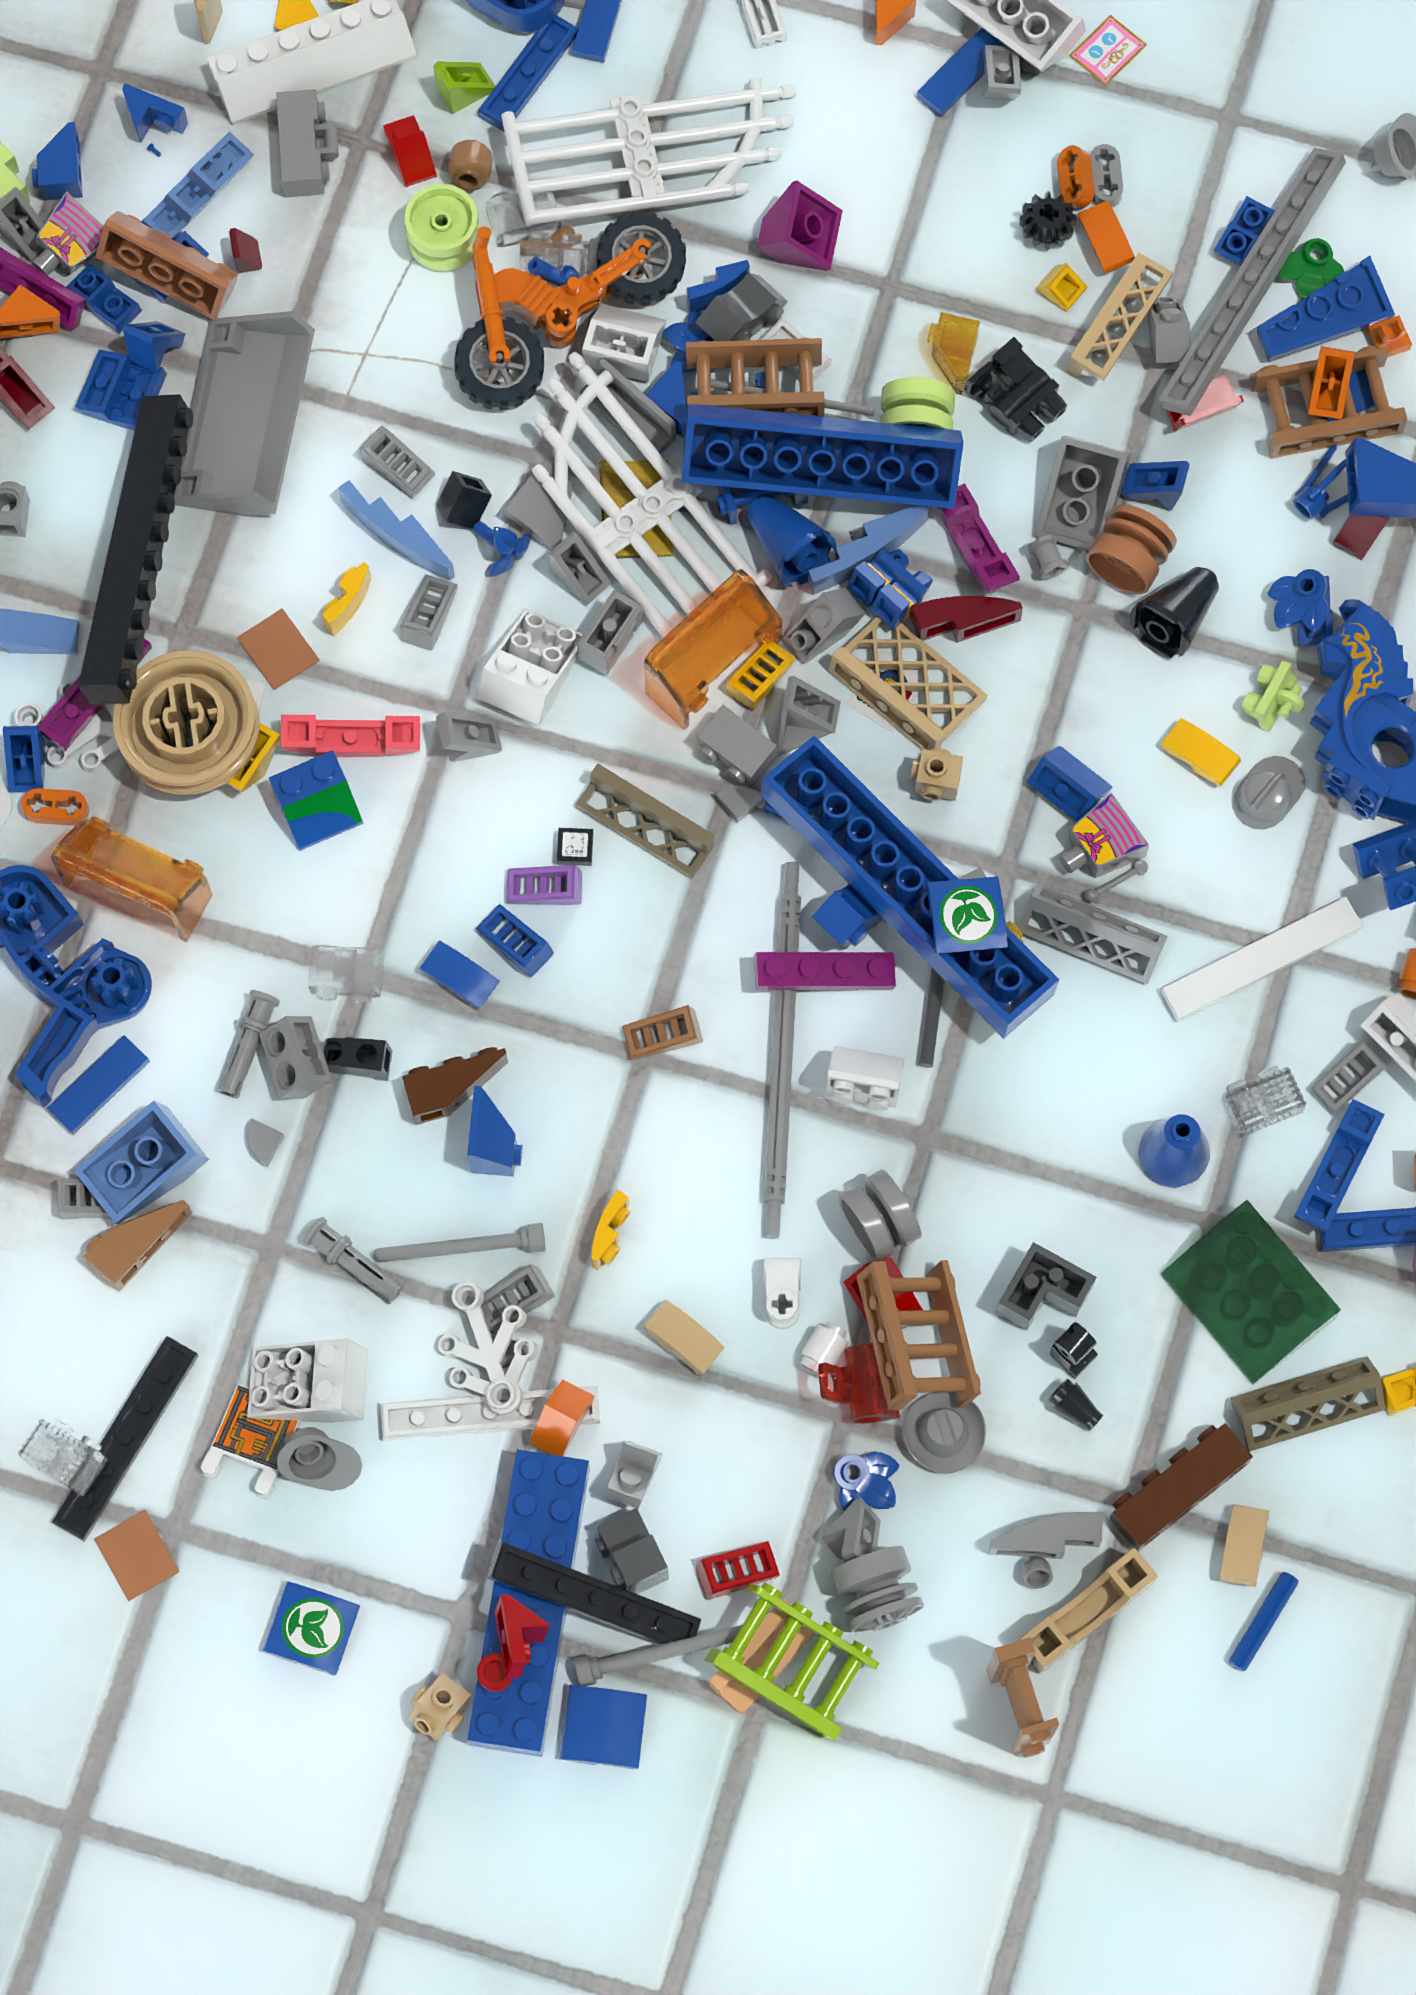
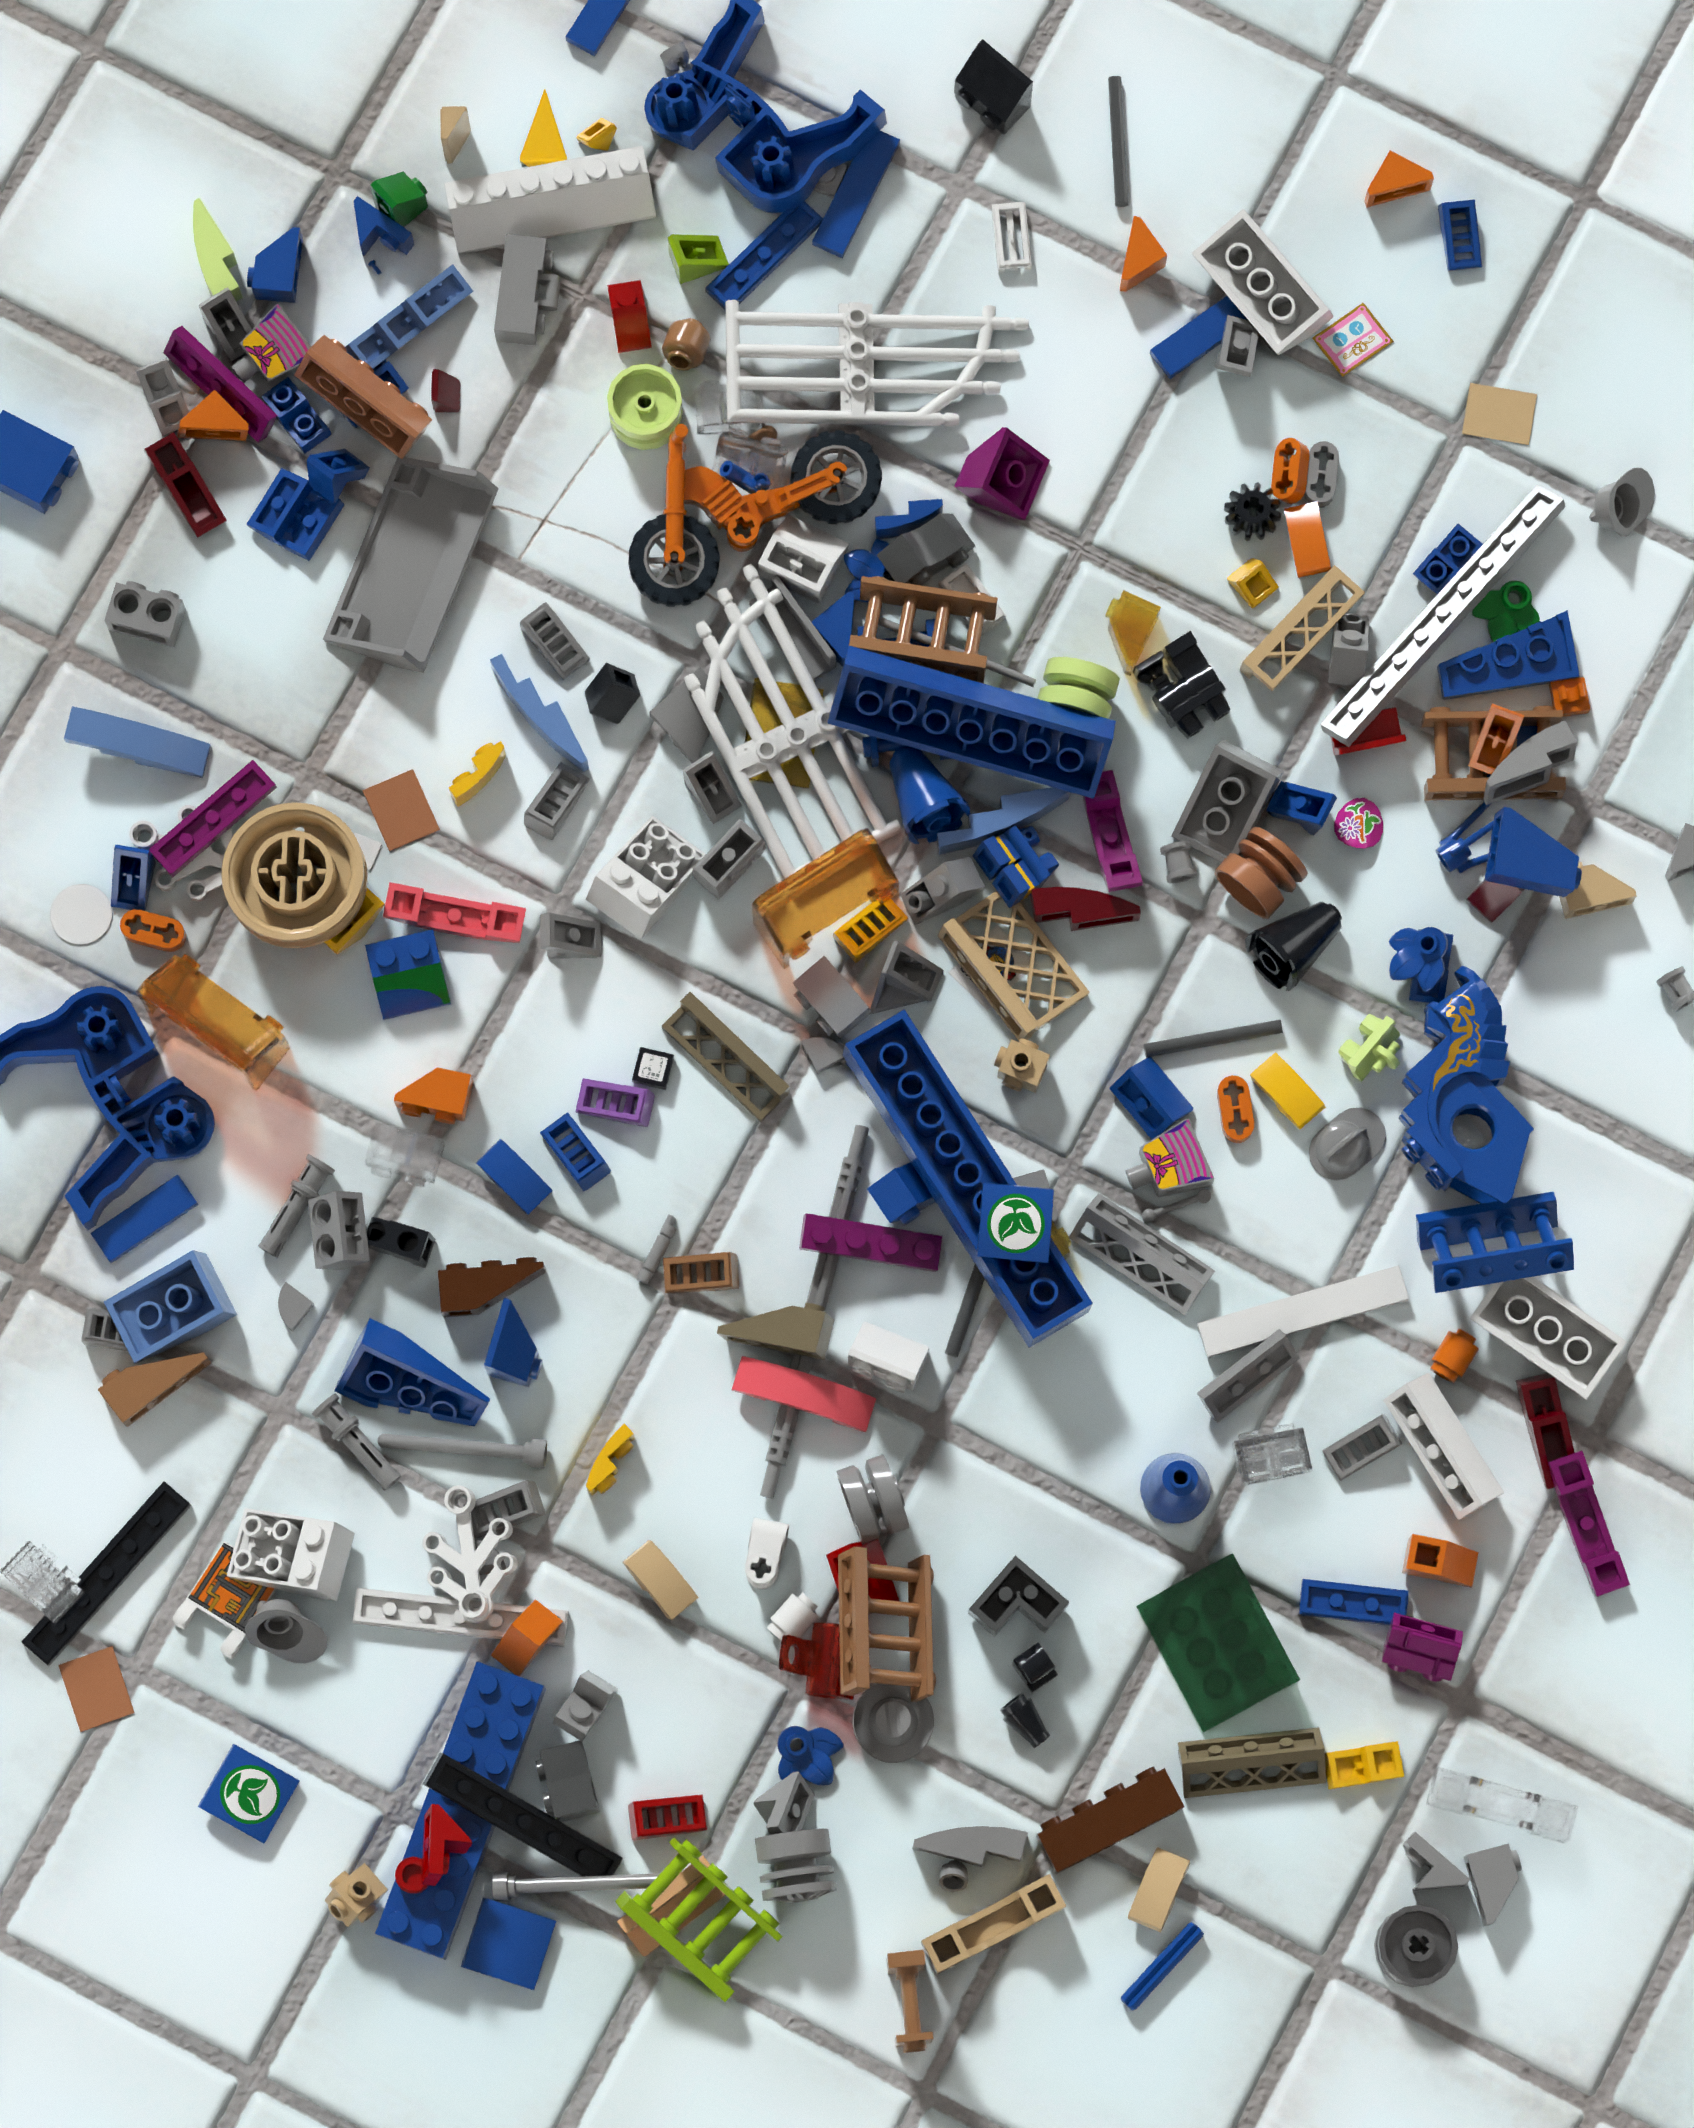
camera: 10 degrees right, 5 degrees up
(135, 550) = (278, 688): black brick -> none
(166, 77) = (399, 197): none -> green slope
(368, 908) = (439, 1094): none -> orange slope
(383, 1186) = (401, 1374): none -> blue wedge
(506, 544) = (643, 748): blue plant -> none
(615, 1020) = (657, 1250): none -> light grey wheel
(759, 1069) = (786, 1330): none -> dark tan slope
(788, 1126) = (804, 1392): none -> coral slope
(1116, 717) = (1213, 1038): none -> dark grey bar
(1146, 781) = (1227, 1110): none -> orange beam
(1213, 490) = (1359, 824): none -> sticker
(1222, 1029) = (1248, 1375): none -> light grey plate
(1262, 92) = (1499, 413): none -> tan sticker
(1339, 1165) = (1331, 1535): blue slope -> none
(1370, 397) = (1531, 763): none -> light grey slope

